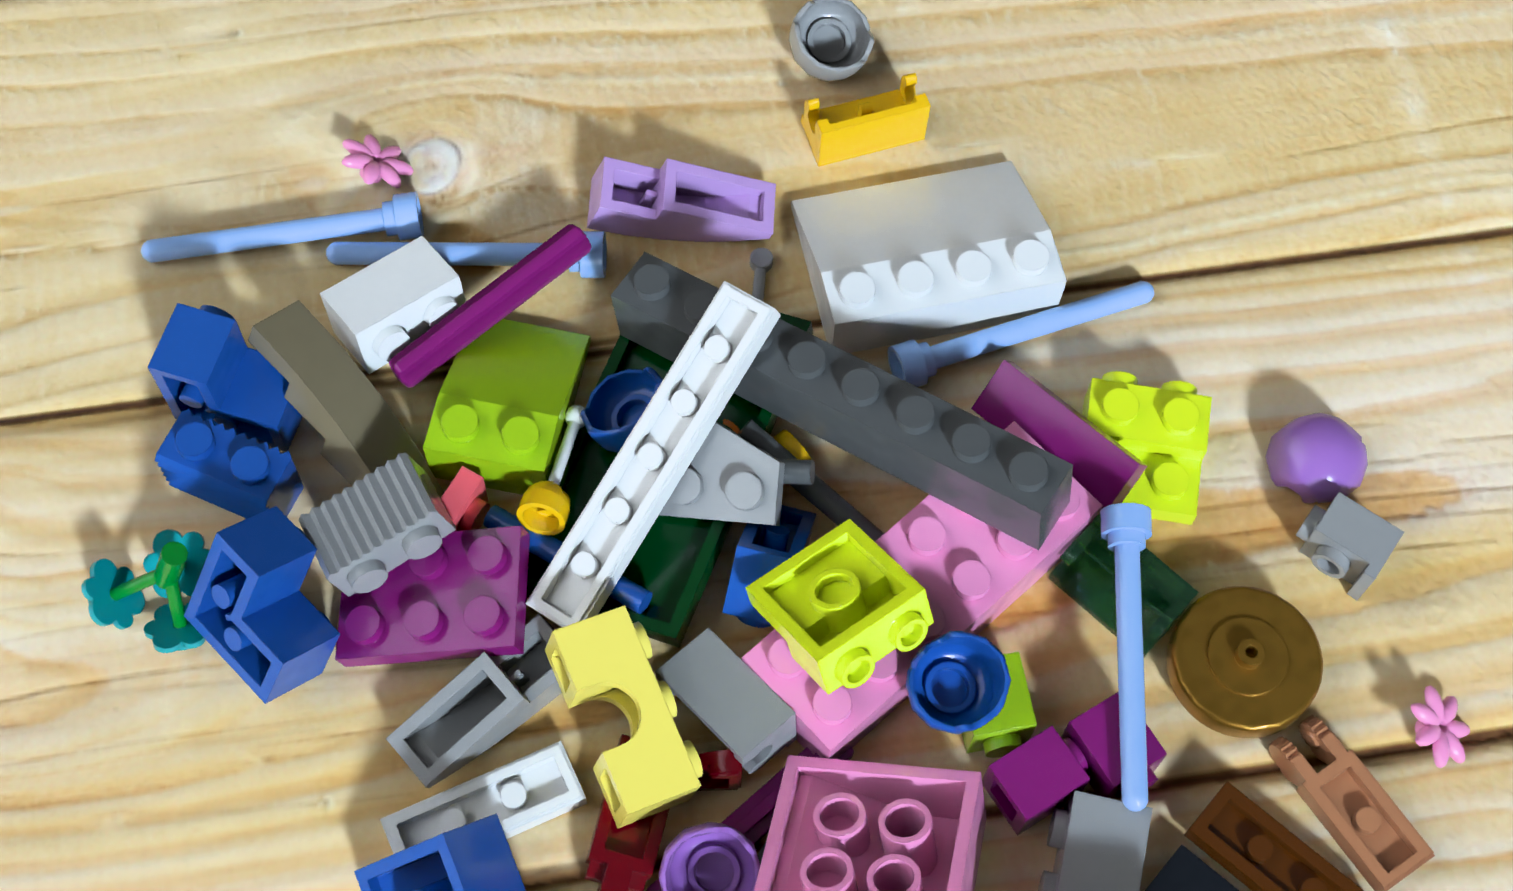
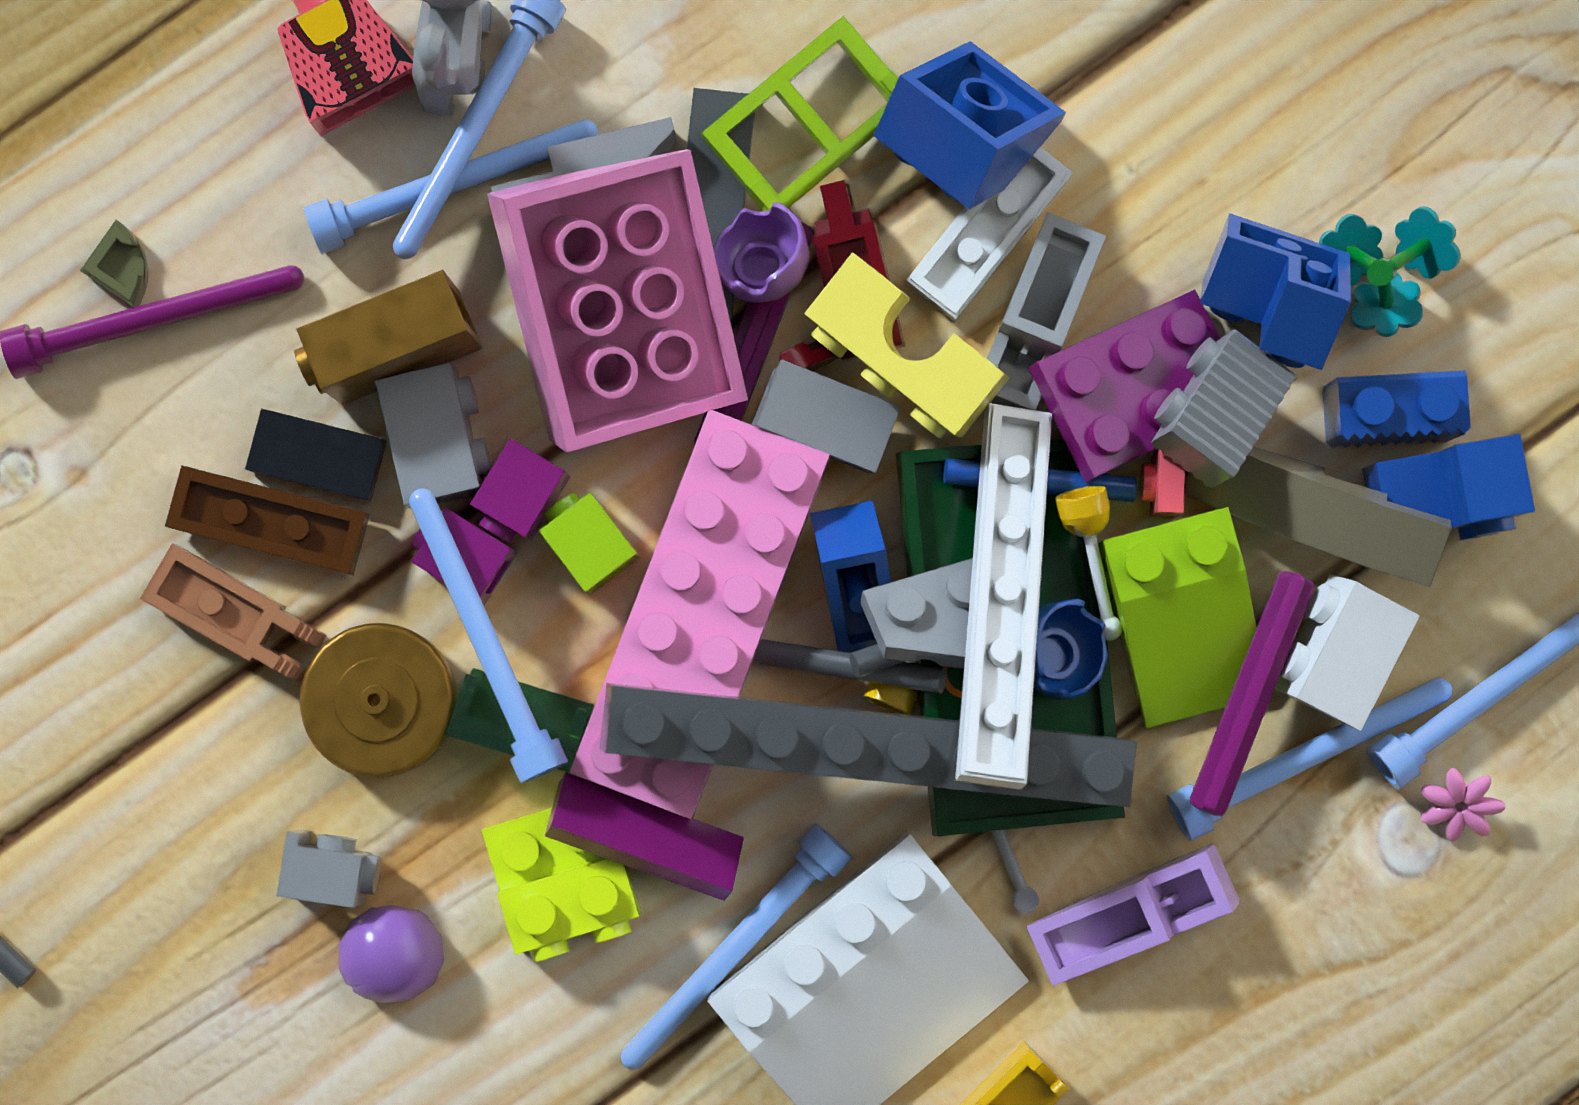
camera: 160 degrees right, 20 degrees up
(842, 607) = (759, 528): neon yellow plate -> none
(958, 682) = (623, 517): blue hair -> none
(1438, 728) = (177, 729): bright pink plant -> none

